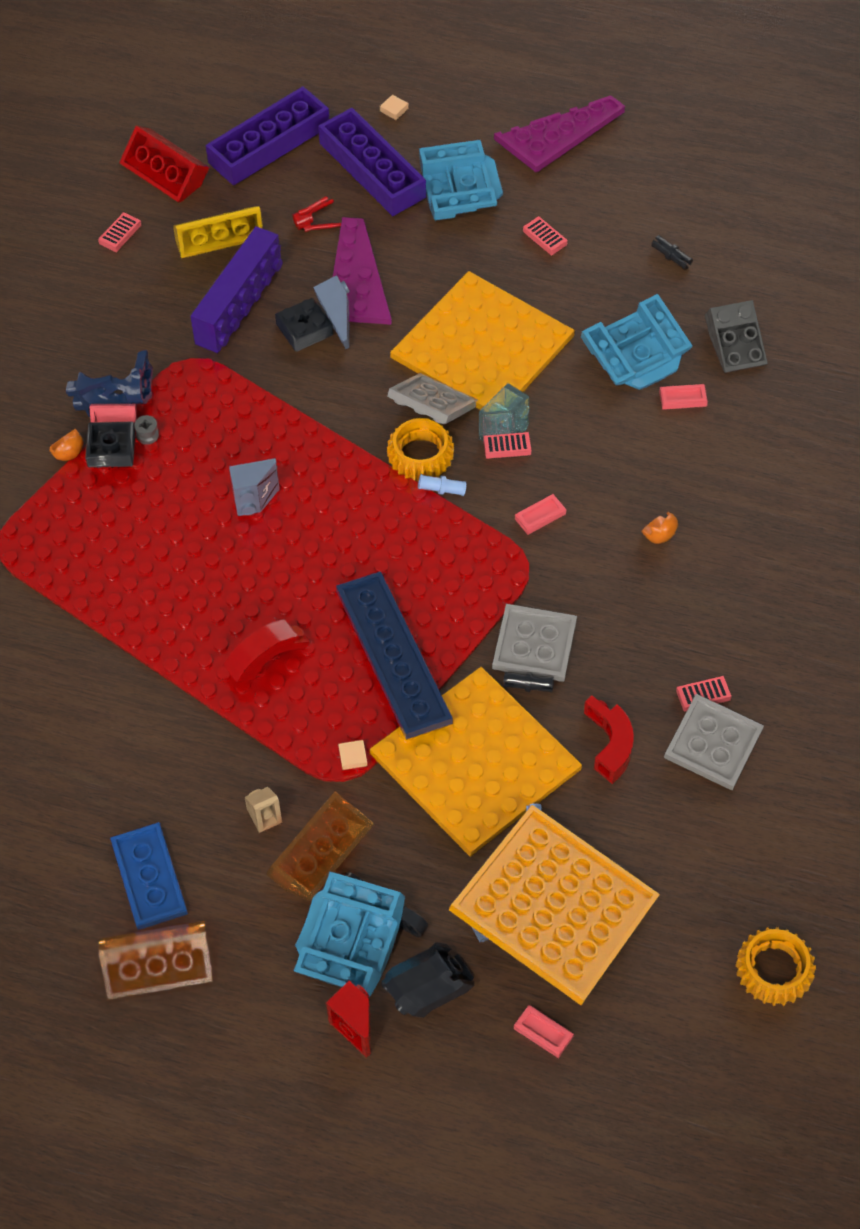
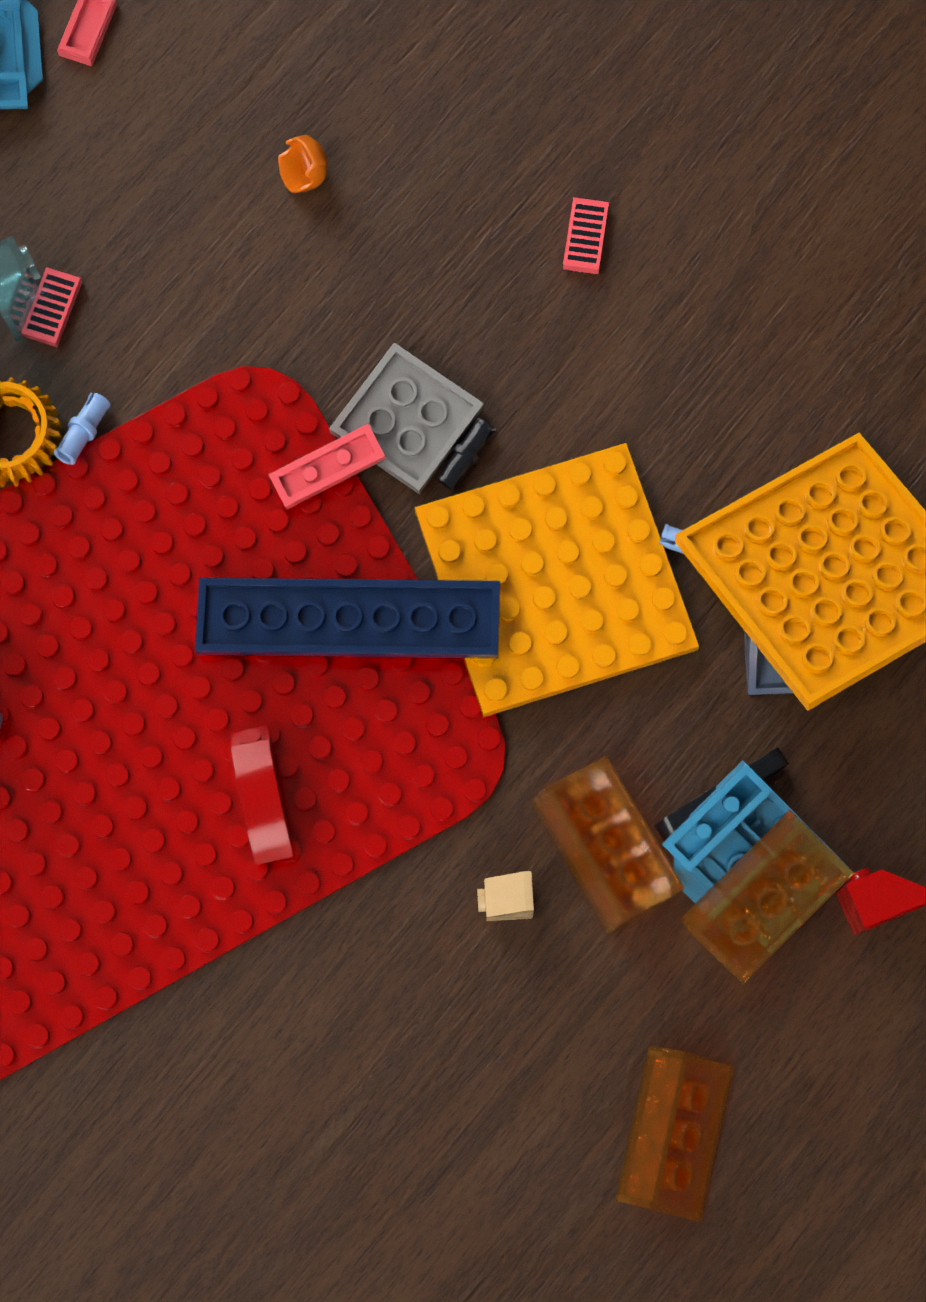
camera: 65 degrees left, 20 degrees up
(148, 876) = (536, 1097): blue tile -> none
(323, 944) = (766, 896): none -> clear orange slope
(352, 755) = (478, 741): light nougat tile -> none
(428, 980) = (867, 781): black brick -> none
(481, 609) = (327, 466): none -> coral plate
(540, 514) = (193, 315): coral tile -> none
(617, 754) = (611, 374): red arch -> none
(713, 741) = (669, 257): light grey plate -> none

